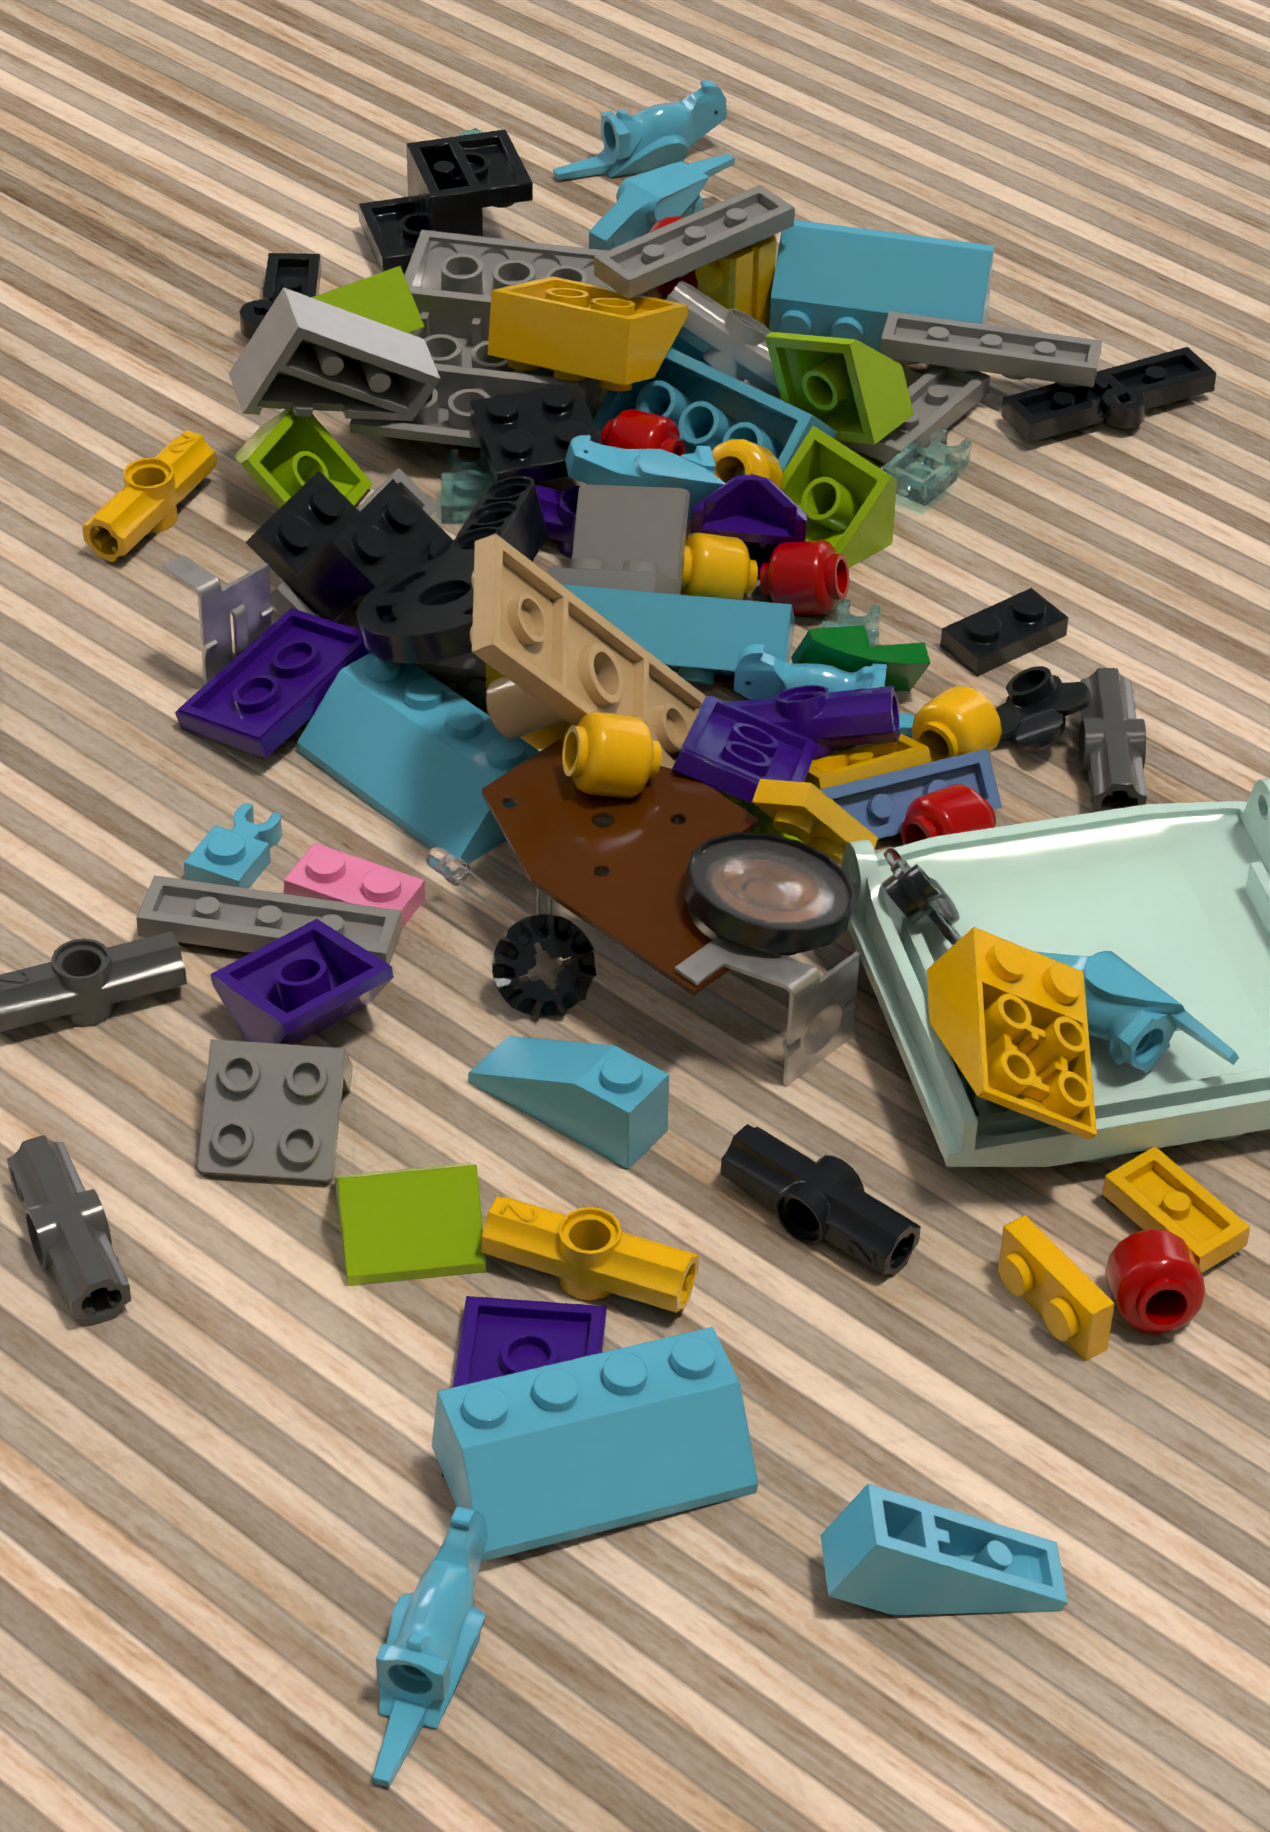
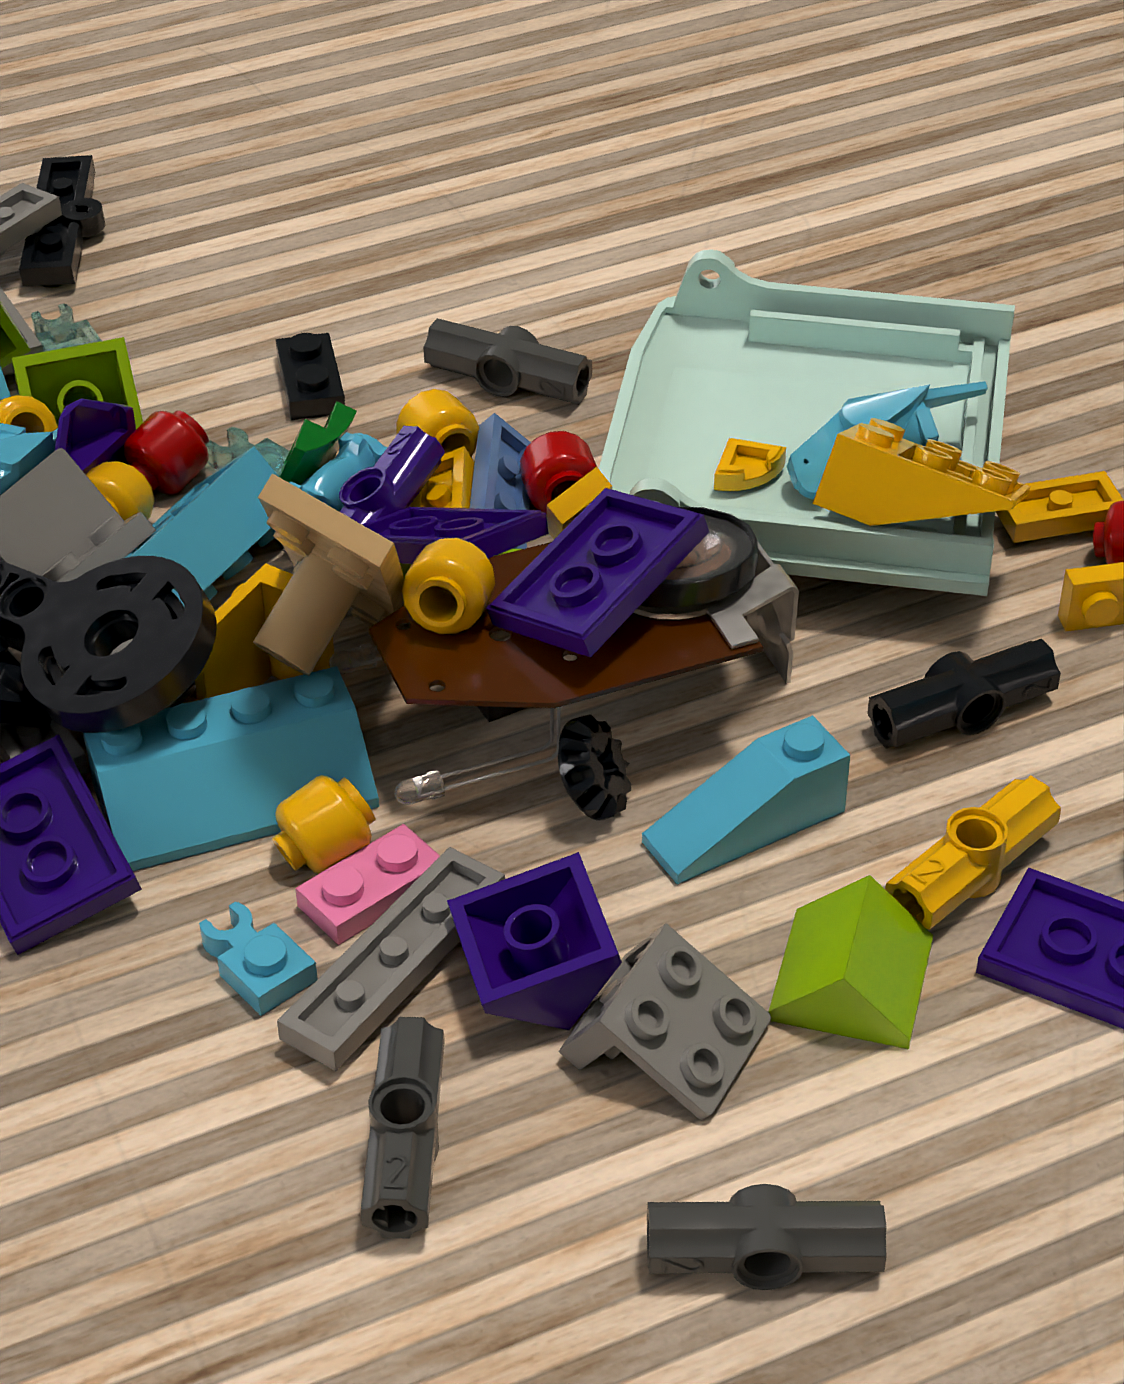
camera: 65 degrees left, 0 degrees up
(389, 829) = (322, 824): none -> yellow head
(686, 835) = (597, 571): none -> dark purple tile
(920, 895) = (710, 483): black plate -> none
(1028, 929) = (748, 465): none -> yellow tile
(1038, 707) = (441, 369): black plate -> none

